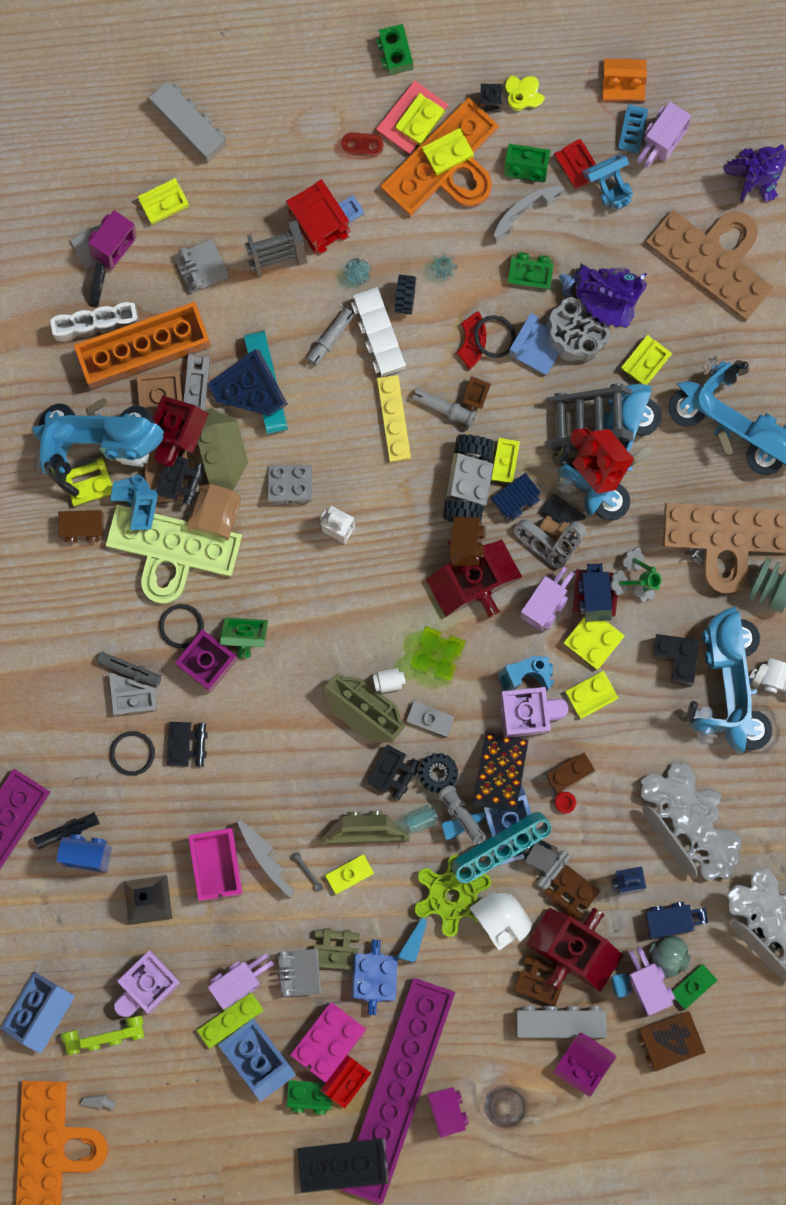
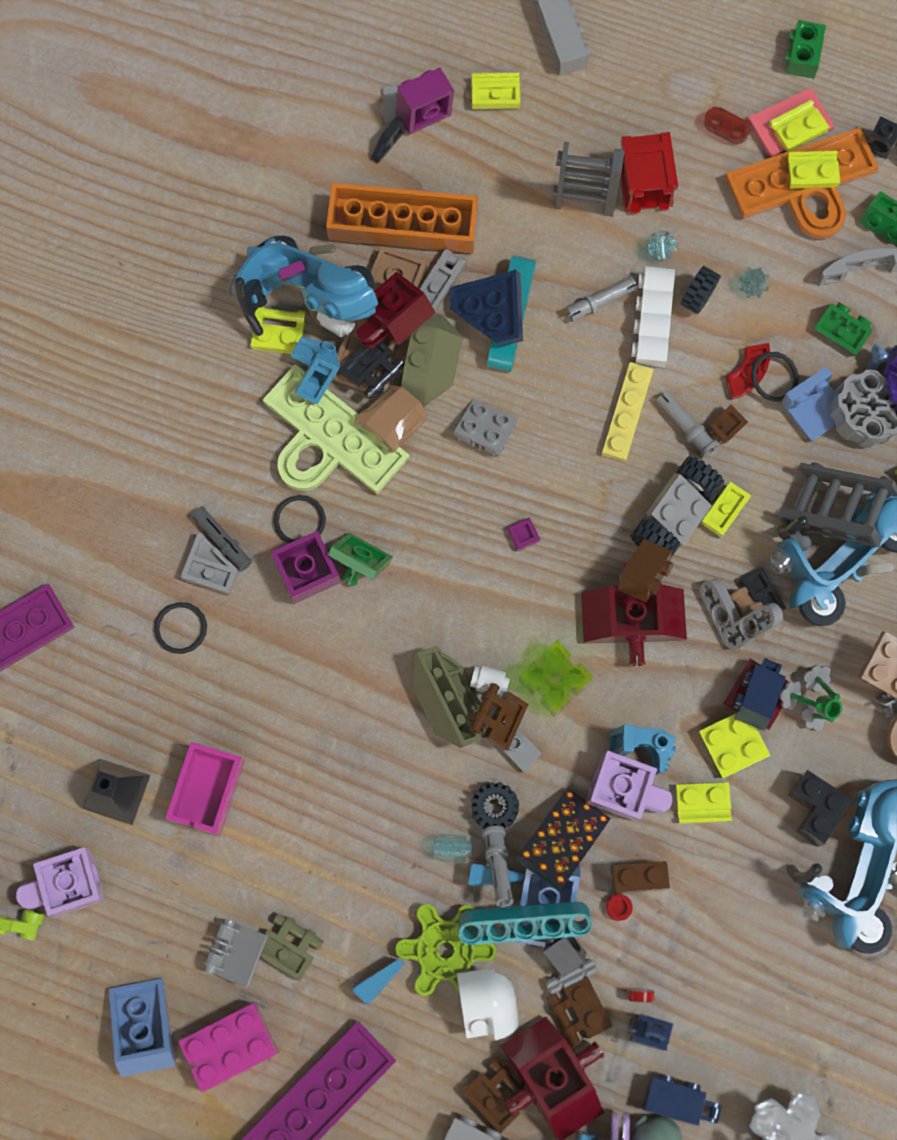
camera: 20 degrees right, 5 degrees down
(73, 827) = (69, 675): black pin -> none
(81, 435) = (291, 271): none -> magenta tile
(81, 526) = (247, 368): reddish brown brick -> none
(83, 854) = (68, 706): blue brick -> none
(89, 323) = (356, 169): white brick -> none
(179, 744) = (235, 641): black plate -> none
(201, 266) = (502, 169): light grey hinge -> none
(230, 1020) = (136, 968): lime plate -> none
(238, 982) = (162, 931): lavender brick -> none
(262, 852) = (261, 800): light grey slope -> none
(297, 857) = (304, 867): dark grey hinge -> none
(307, 1096) = (178, 1098): green bracket -> none
(337, 524) = (515, 490): white brick -> none
(346, 1081) = (225, 1102): red plate -> none
(349, 874) = (345, 870): neon yellow plate -> none
(351, 208) = (686, 184): medium blue tile -> none
(359, 554) = (523, 534): none -> magenta tile
(365, 829) = (384, 829): olive wedge -> none
(374, 977) = (315, 999): plate -> none
(387, 768) = (440, 776): black plate -> none
(415, 704) = (505, 720): none -> reddish brown plate
(516, 497) = (719, 552): dark blue brick -> none
(546, 601) = (701, 676): lavender brick -> none
(600, 458) = (837, 538): red brick -> none
(610, 858) = (640, 995): none -> red tile
(693, 816) = (756, 992): light grey plant -> none

